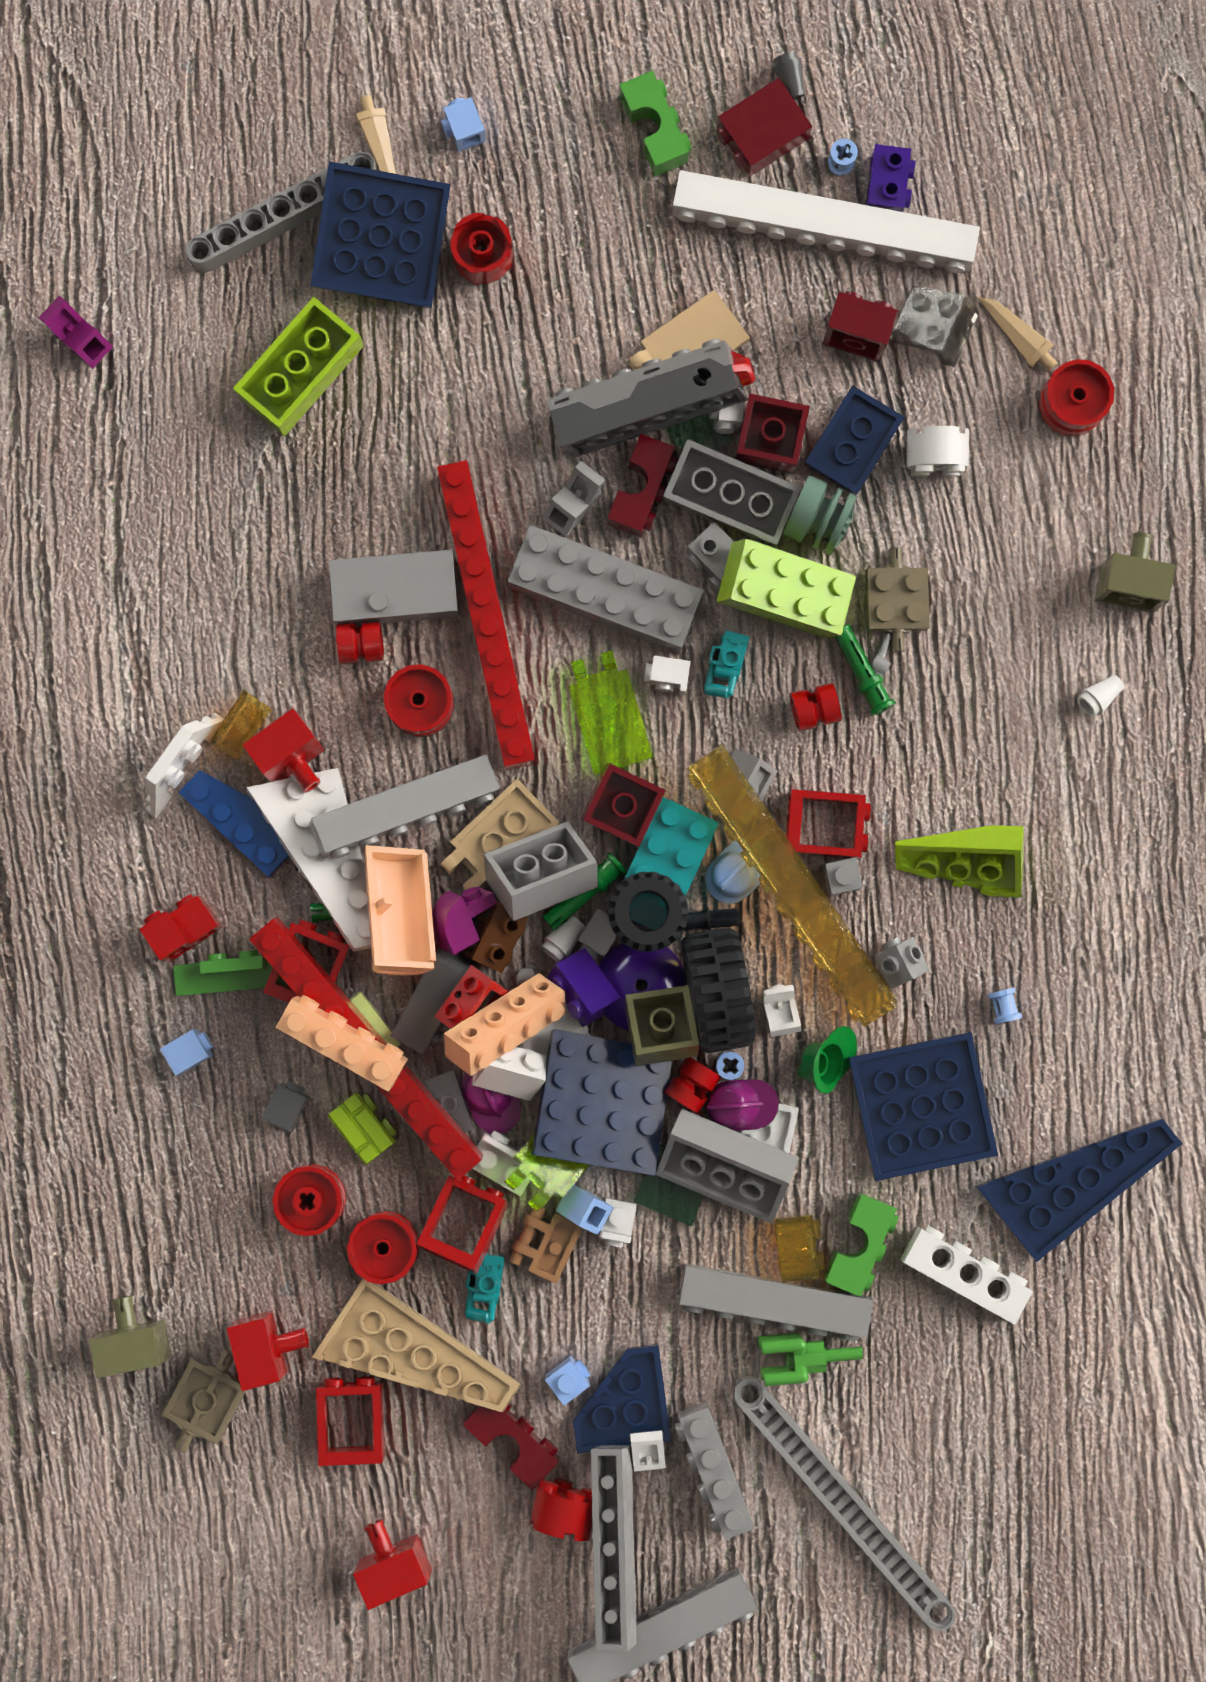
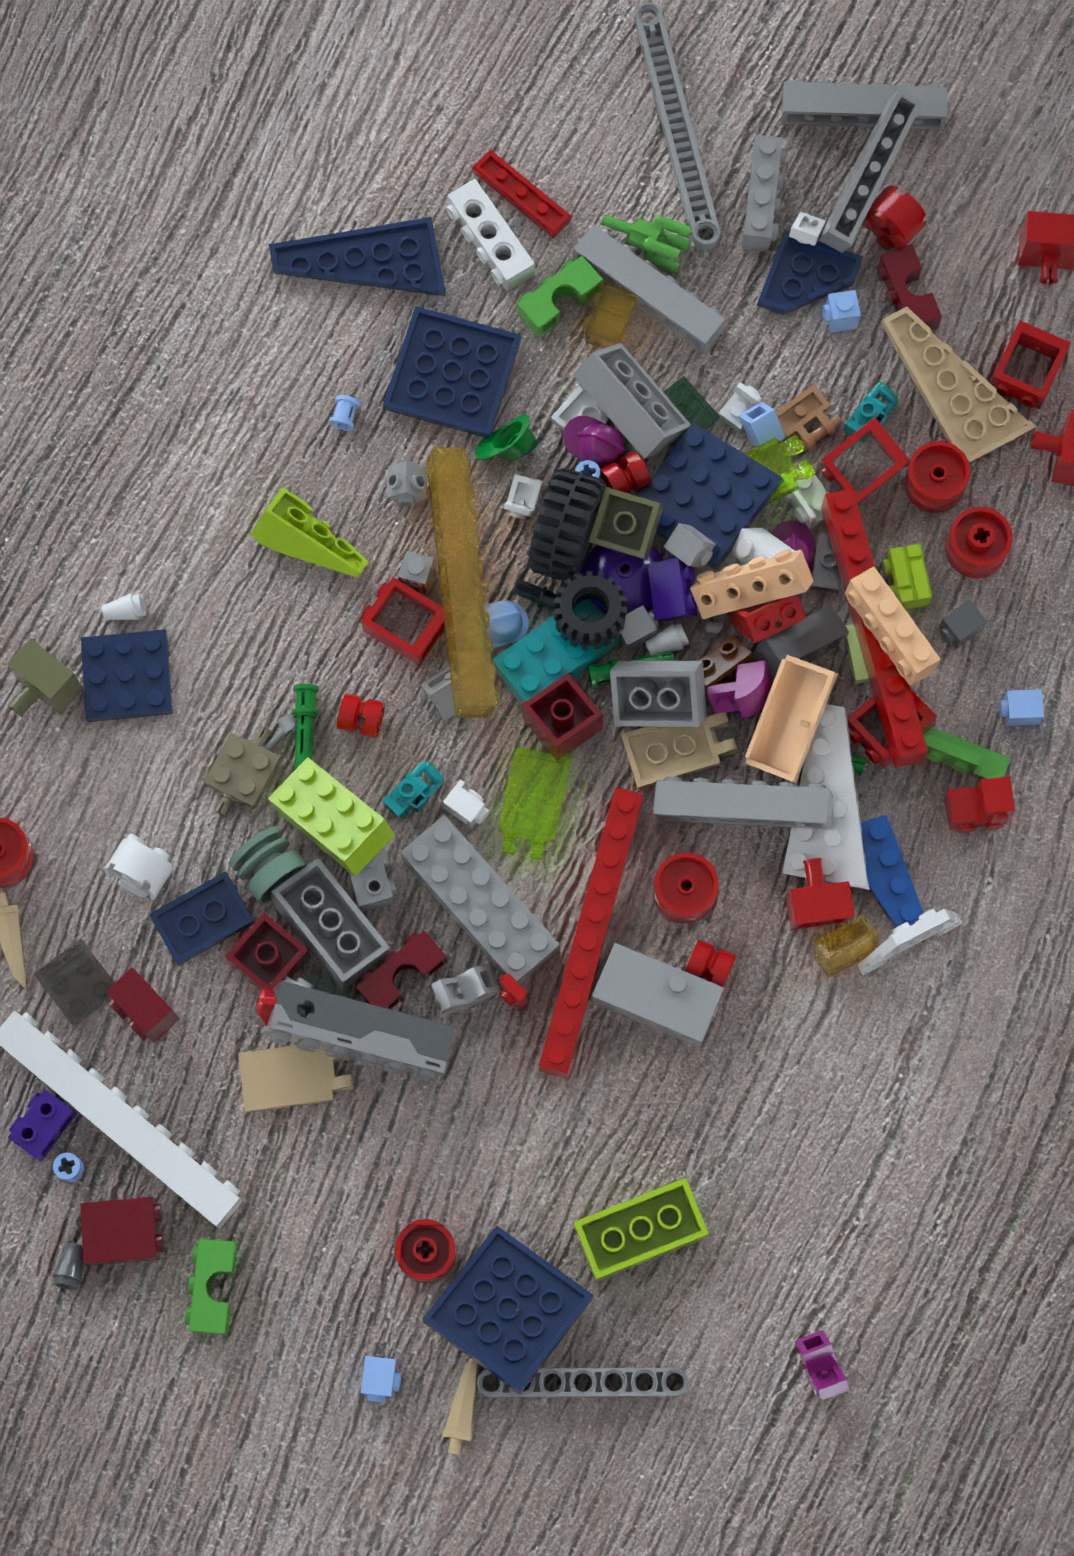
camera: 150 degrees left, 10 degrees down
(526, 514) = (512, 992): none -> red plate
(586, 1034) = (690, 545): none -> light grey brick
(961, 1341) = (521, 193): none -> red tile
(1060, 633) = (126, 675): none -> dark blue plate

